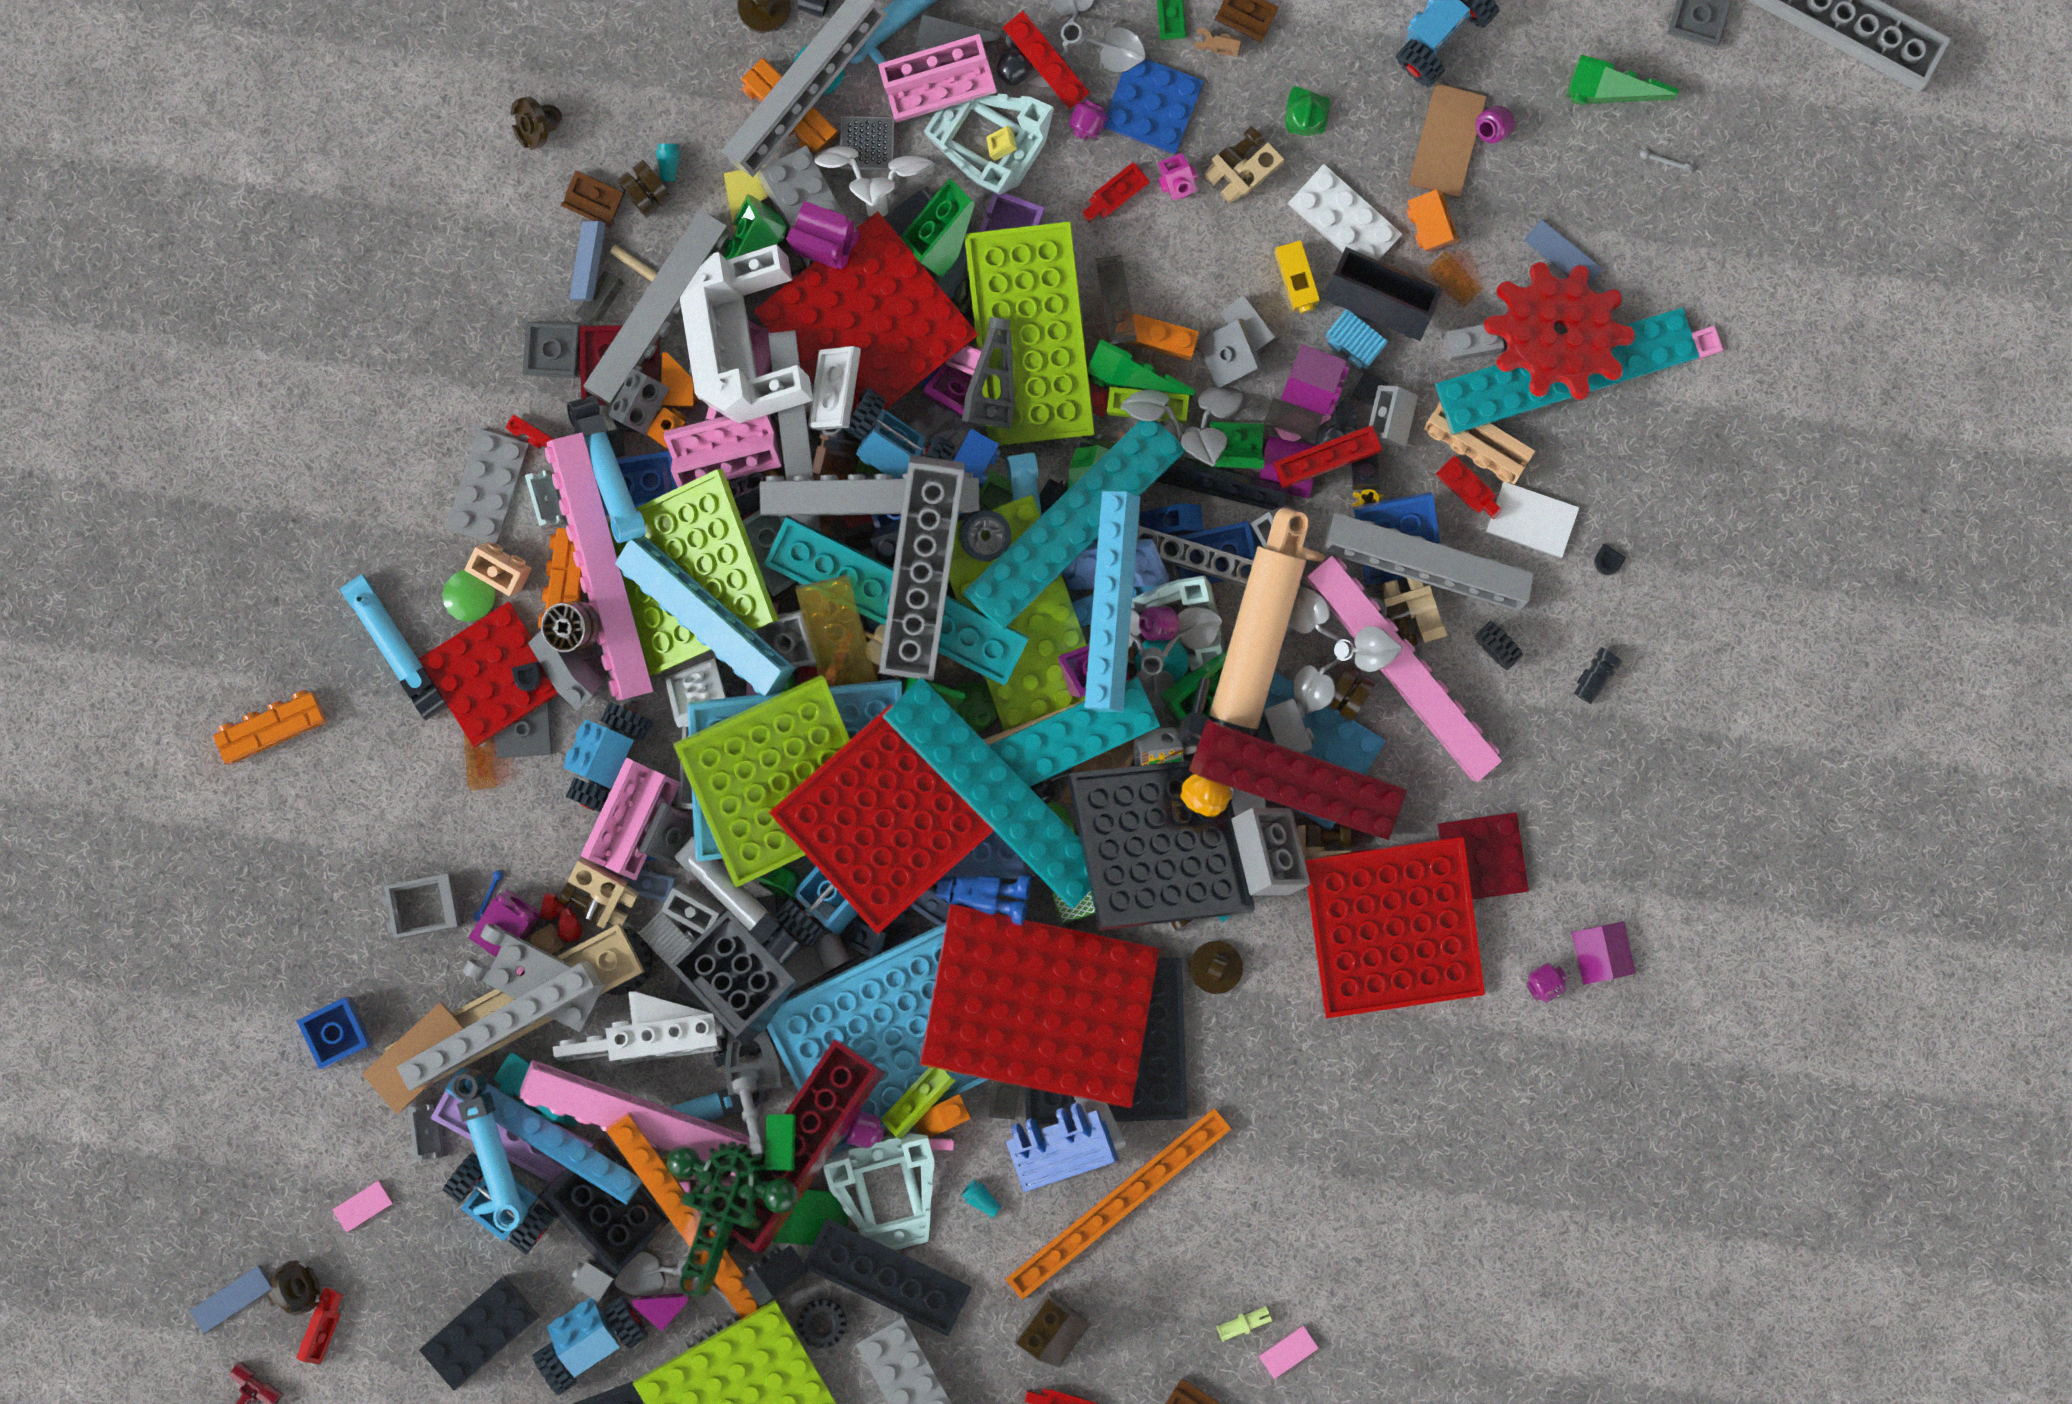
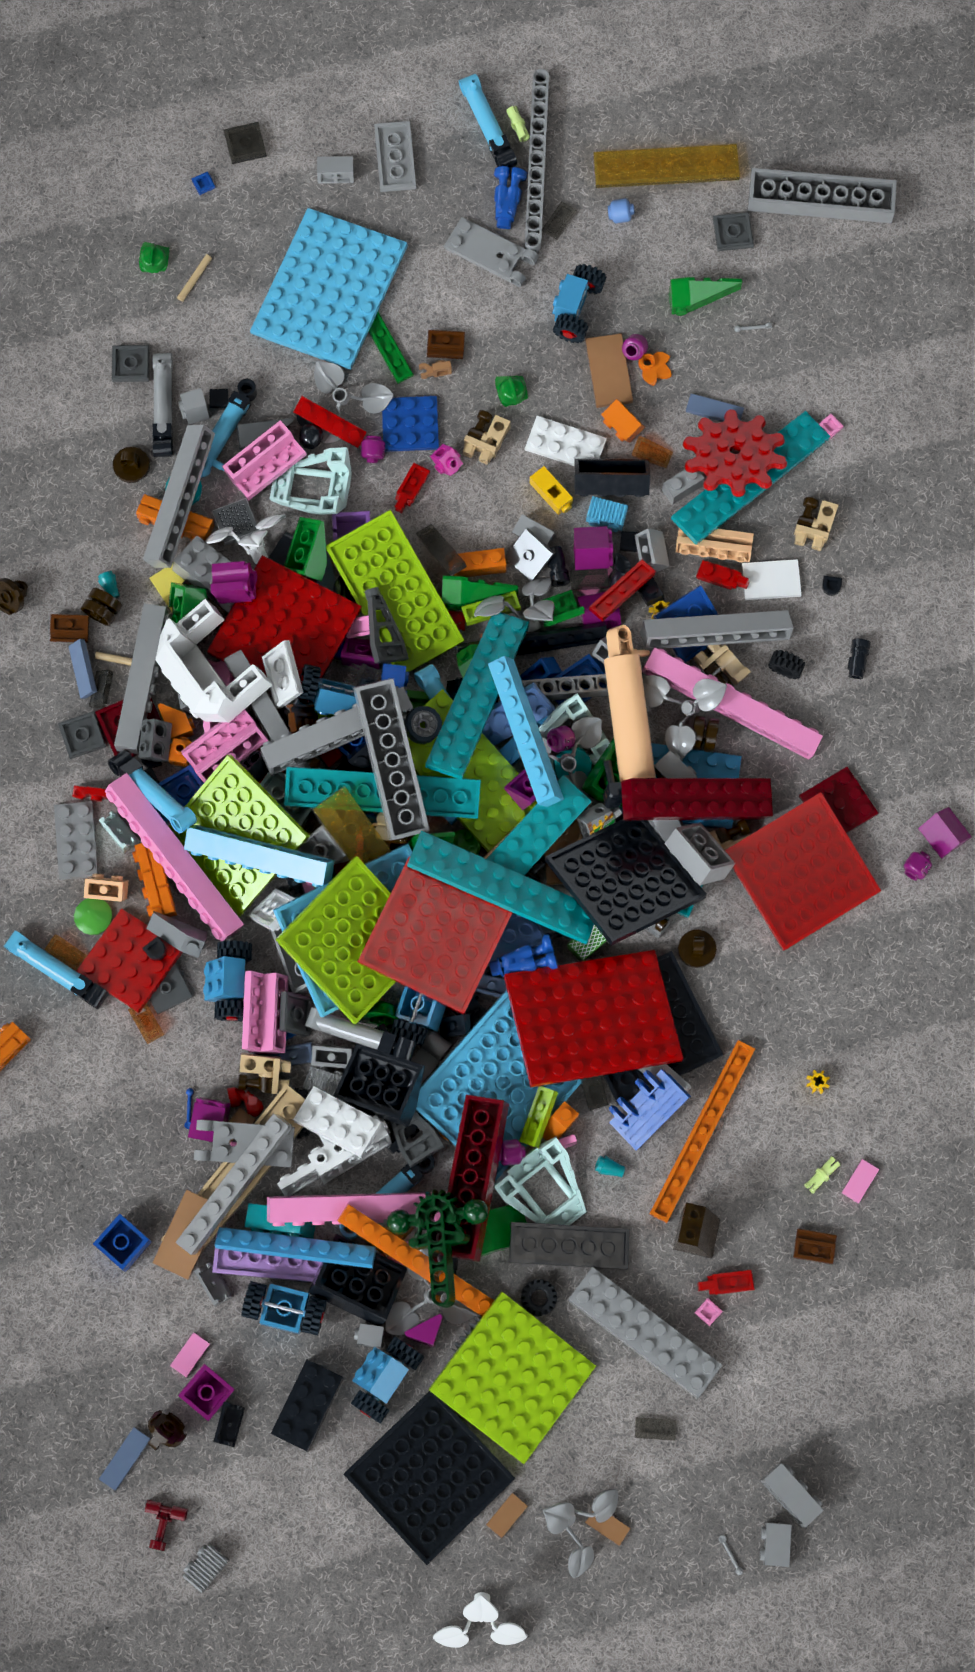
camera: 25 degrees left, 10 degrees down
(320, 1327) = (195, 1450): red hinge -> none
(362, 1263) = (206, 1392): none -> magenta slope
(374, 1313) = (229, 1424): none -> black hinge
(415, 628) = (65, 952): none -> clear orange slope
(449, 903) = (123, 1139): light grey window -> none
(478, 1113) = (244, 1248): medium azure piece -> none
(570, 626) = (171, 901): dark brown wheel -> none
(660, 1002) = (337, 1122): none -> white plate
(744, 1087) = (418, 1155): light grey piece -> none
(773, 1274) = (493, 1274): black brick -> none
(780, 1142) = (459, 1178): green tile -> none
(1001, 143) = (323, 485): light yellow tile -> none
(1205, 795) = (641, 833): light orange hair -> none
(1259, 386) = (557, 564): none -> black axle
(1283, 1205) = (812, 1081): none -> yellow gear
(1511, 166) = (656, 369): none -> orange plate
(1620, 475) = (813, 528): none -> tan hips

